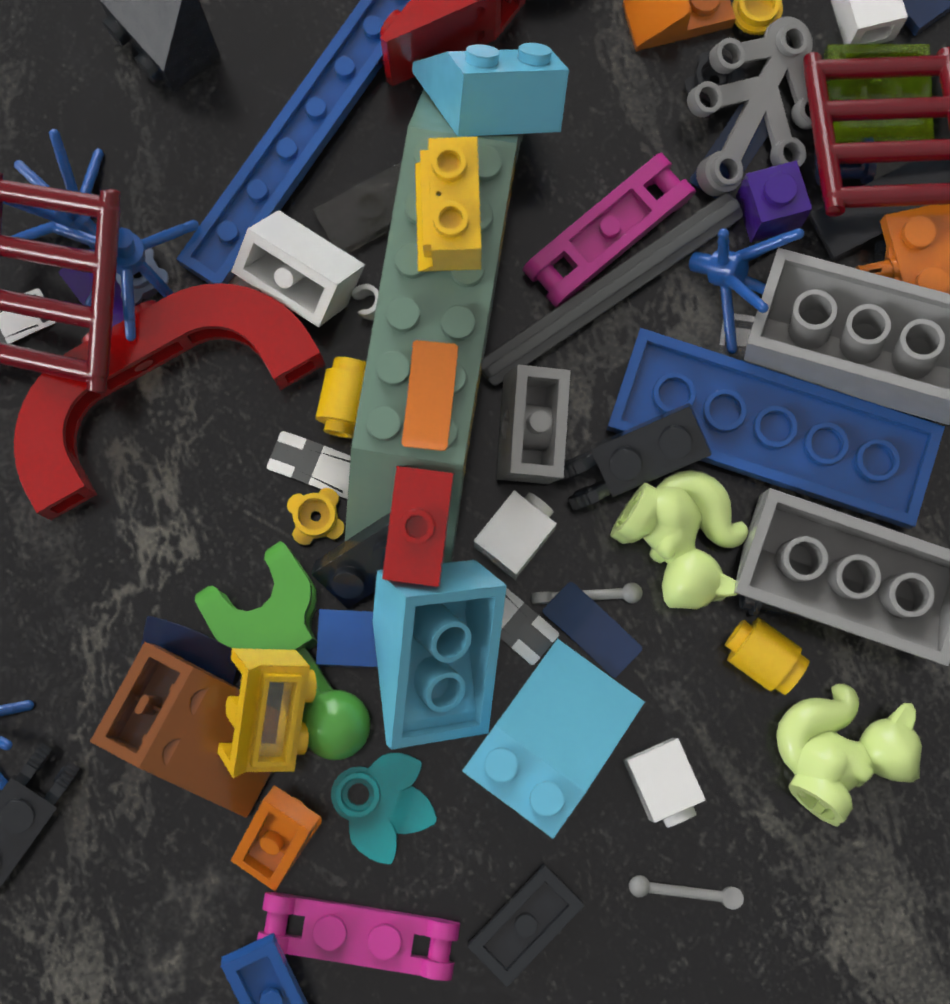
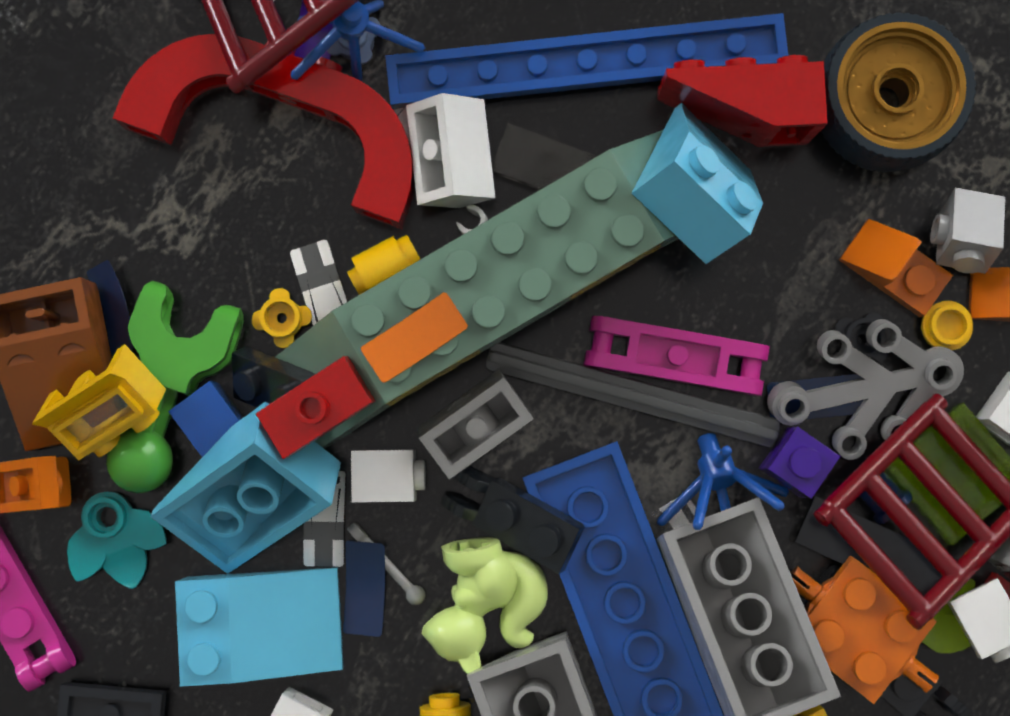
camera: 50 degrees right, 5 degrees up
(448, 205) = (565, 233): yellow window -> none

